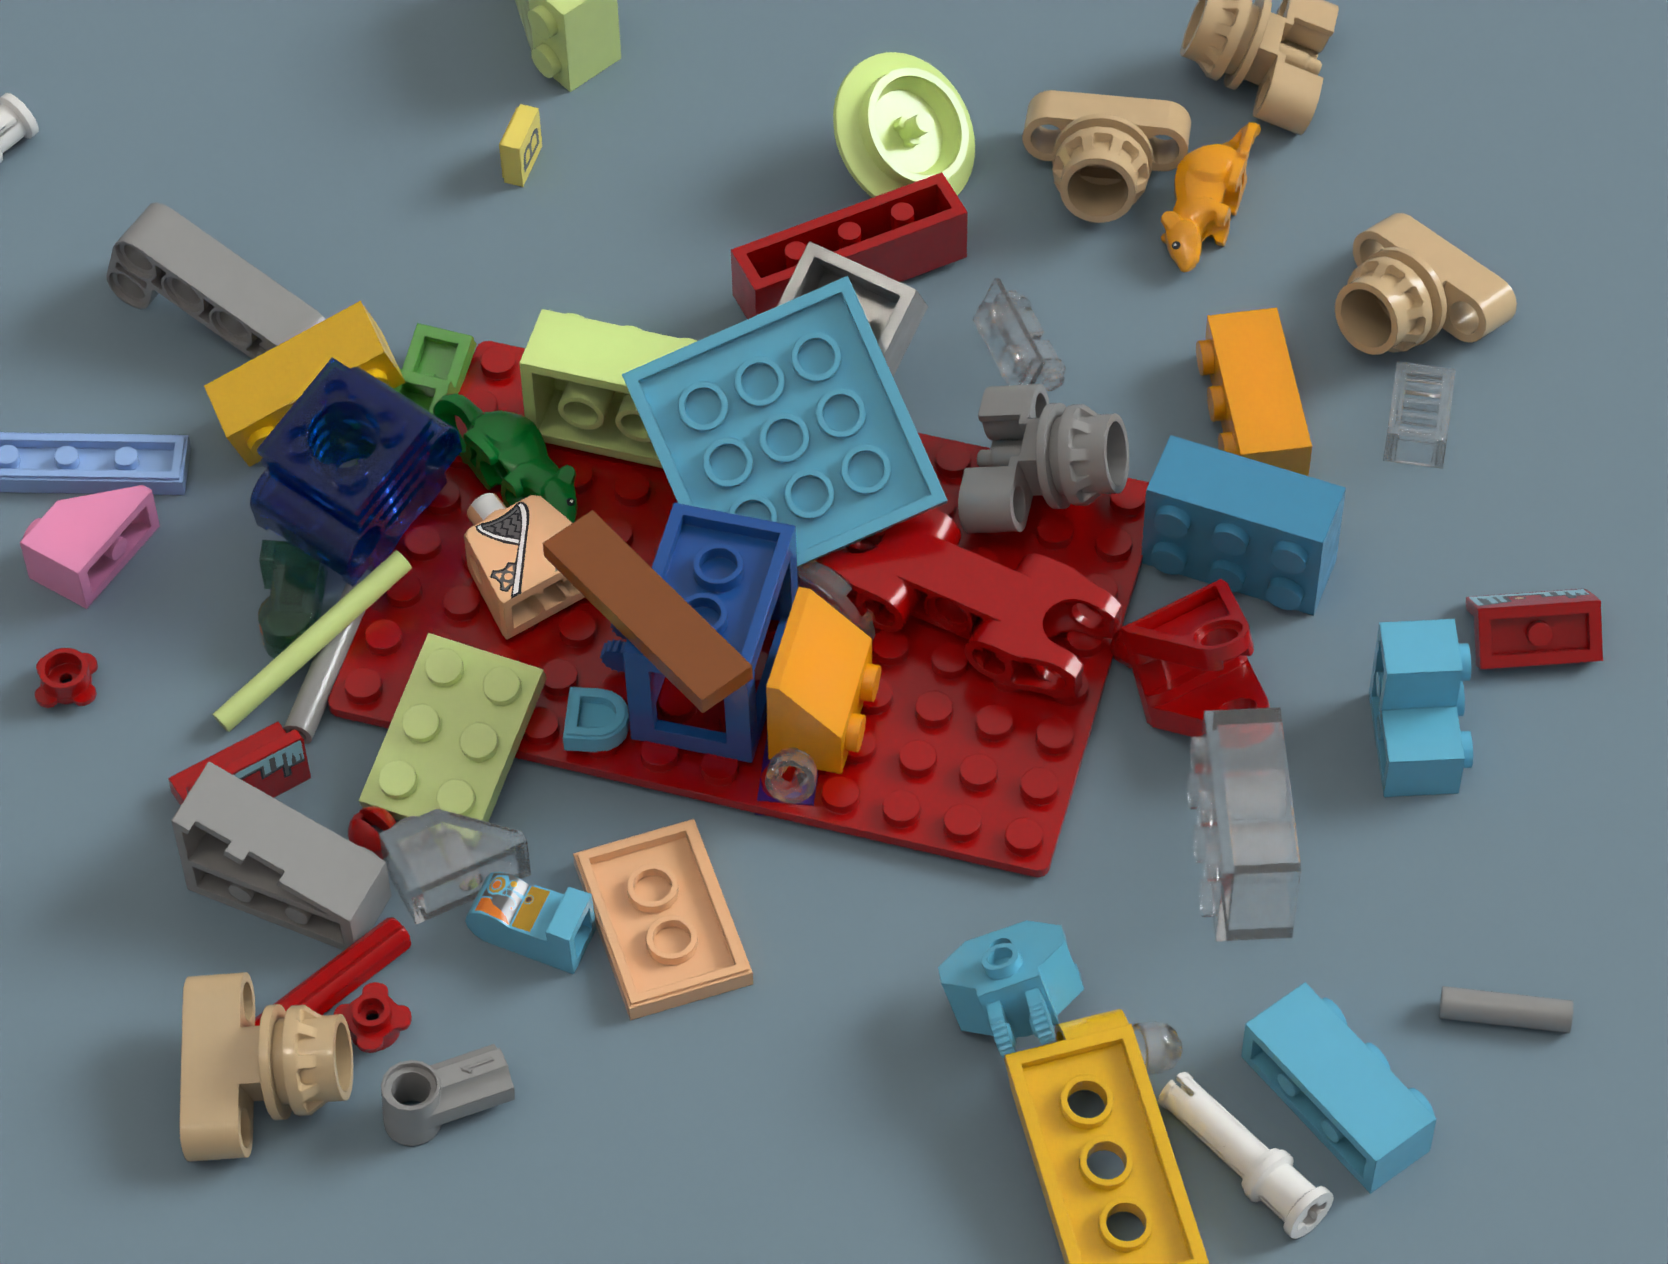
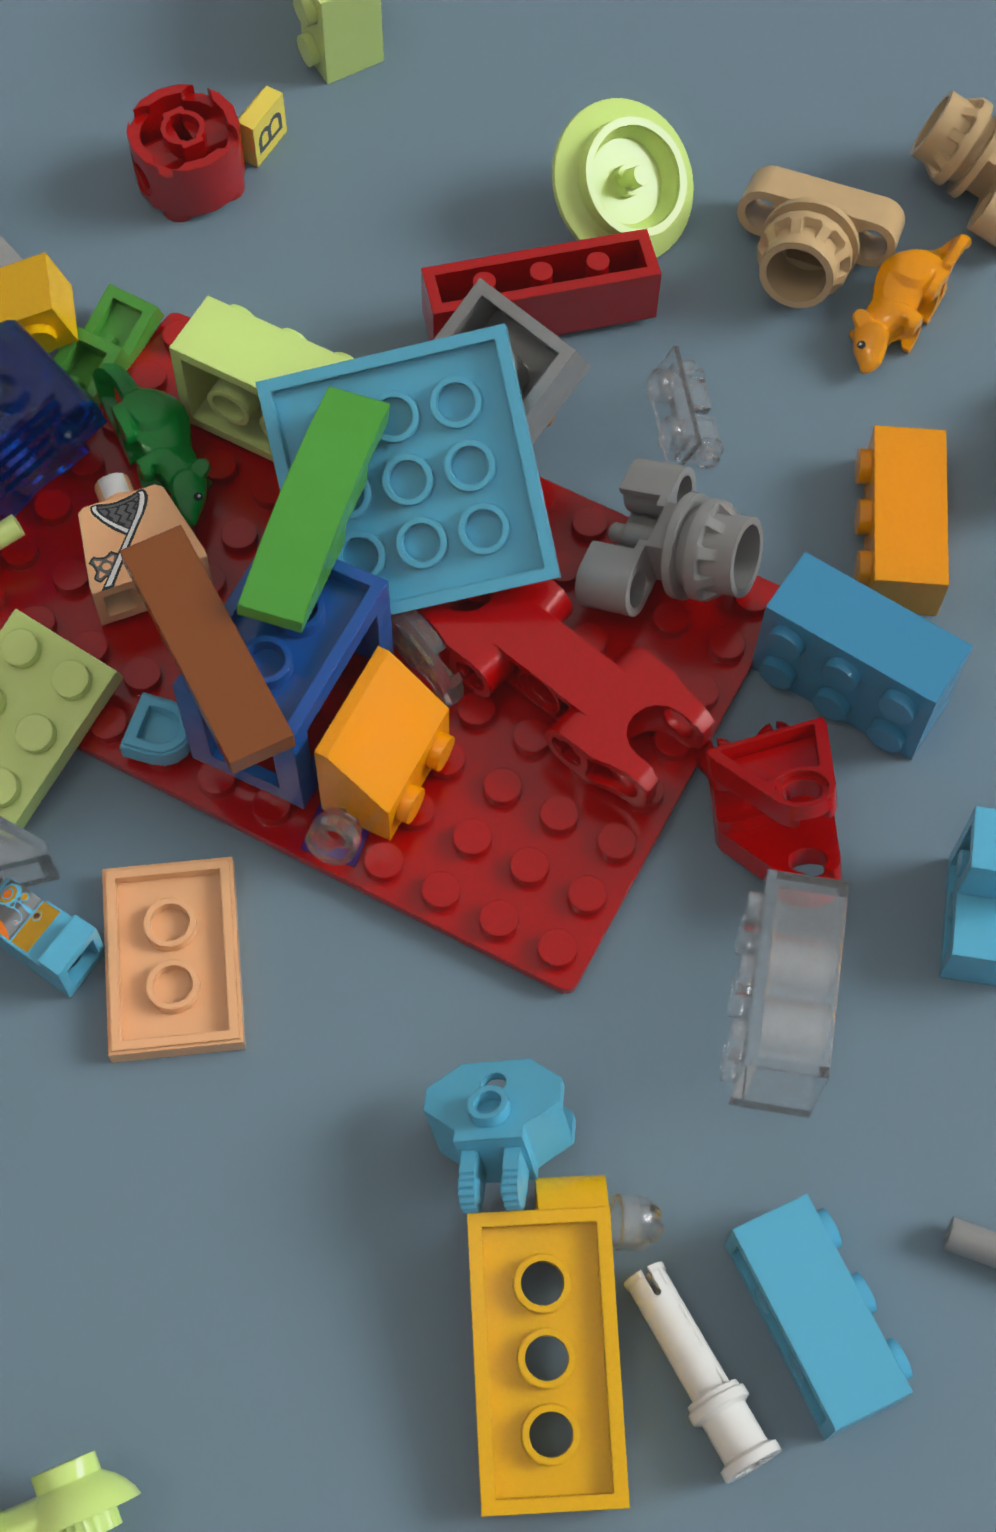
camera: 10 degrees right, 10 degrees up
(455, 183) = (186, 151): none -> red brick
(713, 472) = (313, 510): none -> bright green slope

